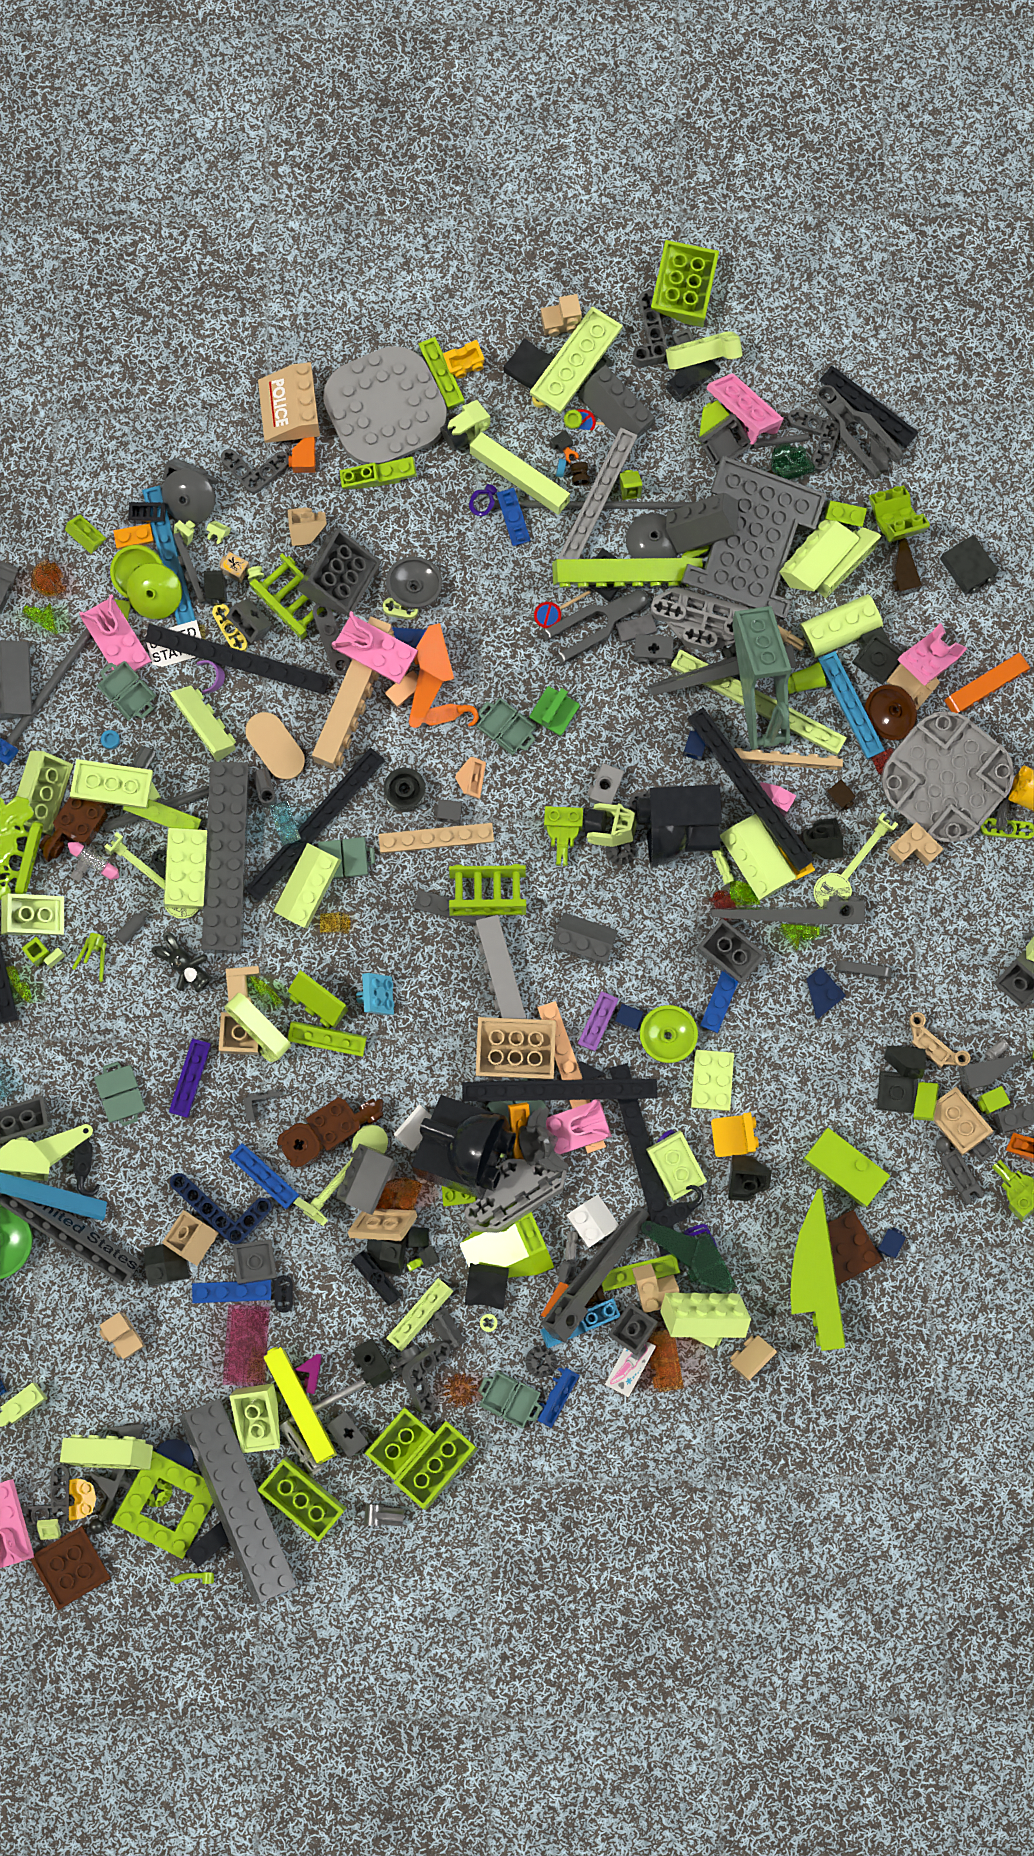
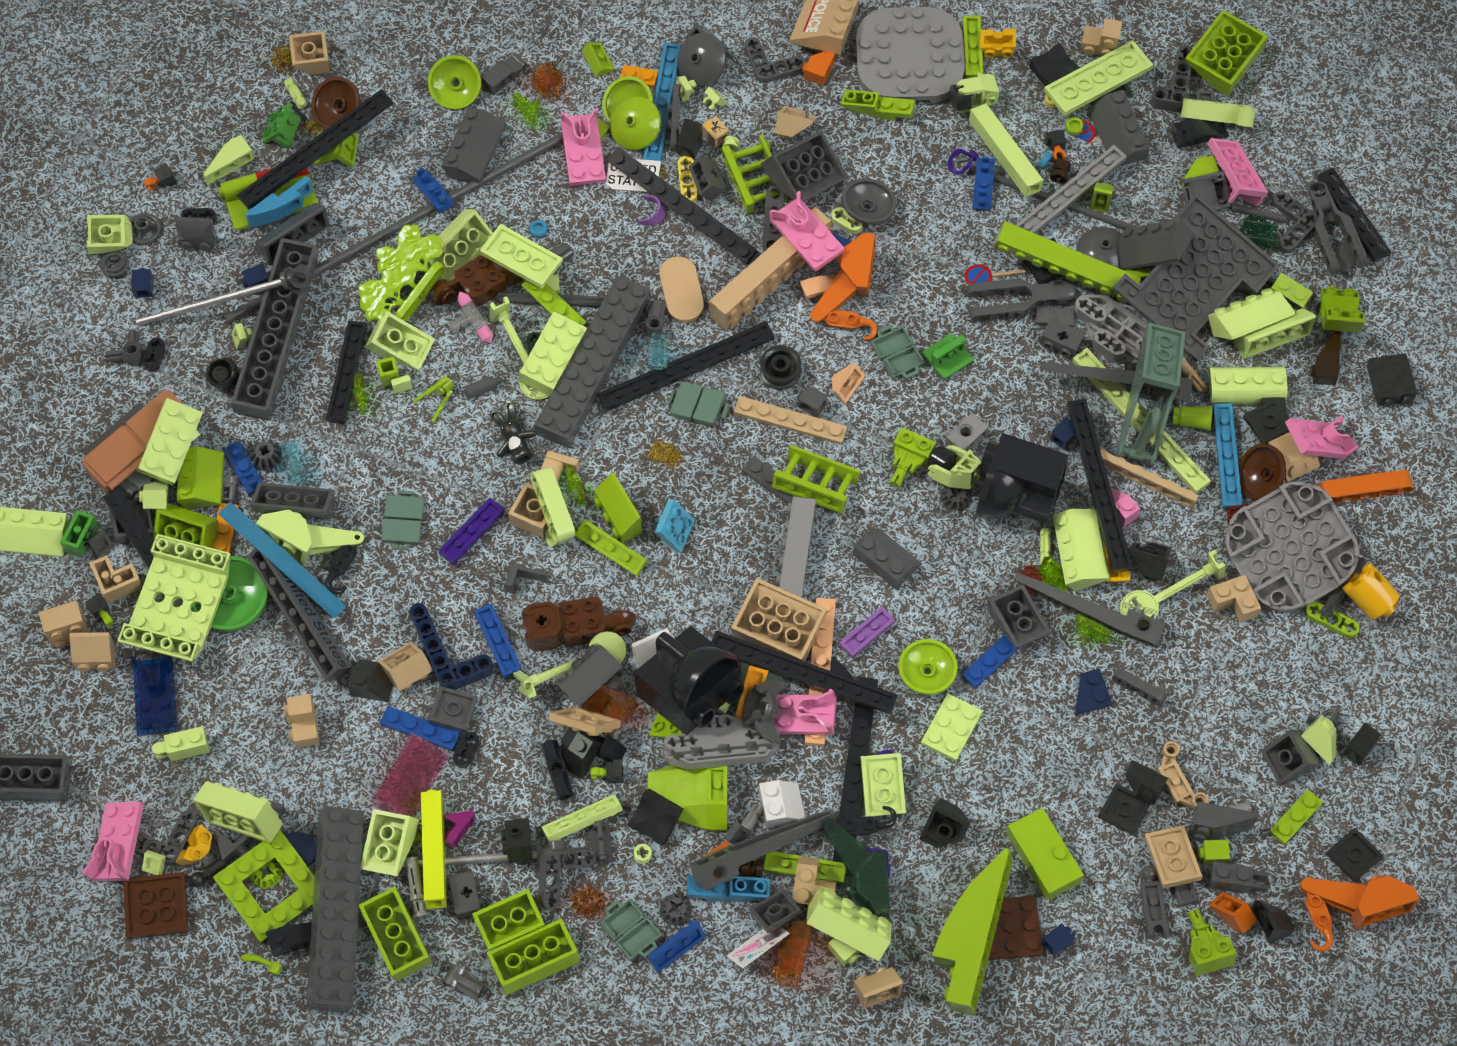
camera: 25 degrees right, 15 degrees down
(120, 684) = (570, 185): sand green piece -> none
(133, 509) = (653, 64): black slope -> none
(203, 722) = (627, 243): yellowish green slope -> none
(307, 885) = (655, 412): yellowish green slope -> none
(629, 1017) = (896, 639): dark blue brick -> none
(734, 1135) = (950, 782): yellow bracket -> none
(841, 796) = (1183, 528): dark brown brick -> none
(926, 1101) = (1148, 826): lime tile -> none

